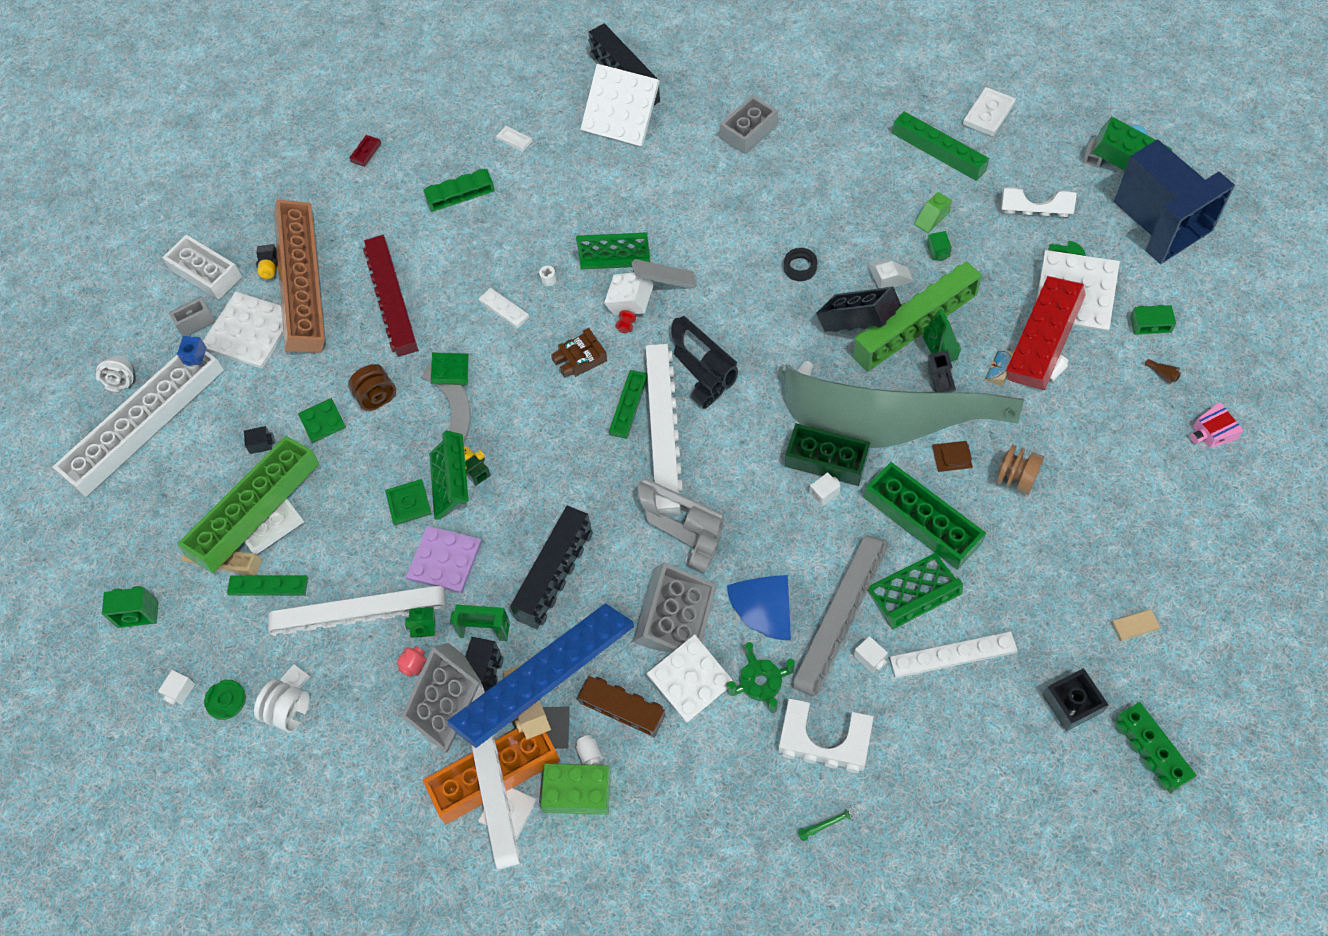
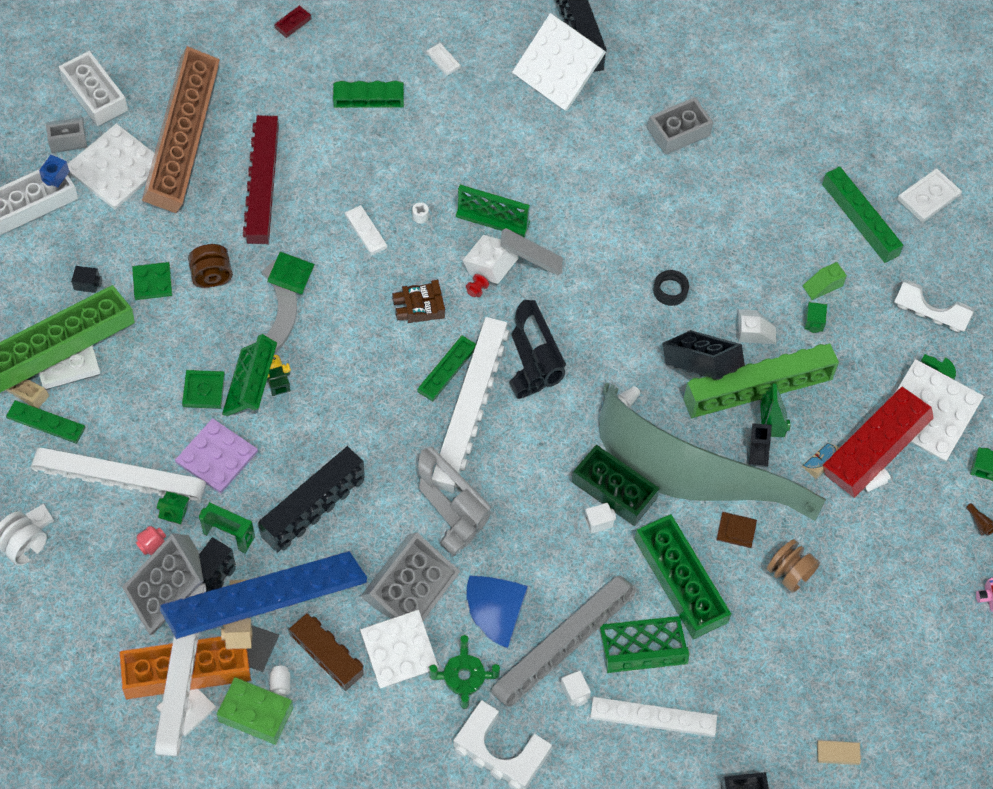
camera: 10 degrees right, 0 degrees up
(266, 261) = (156, 104): piece -> none

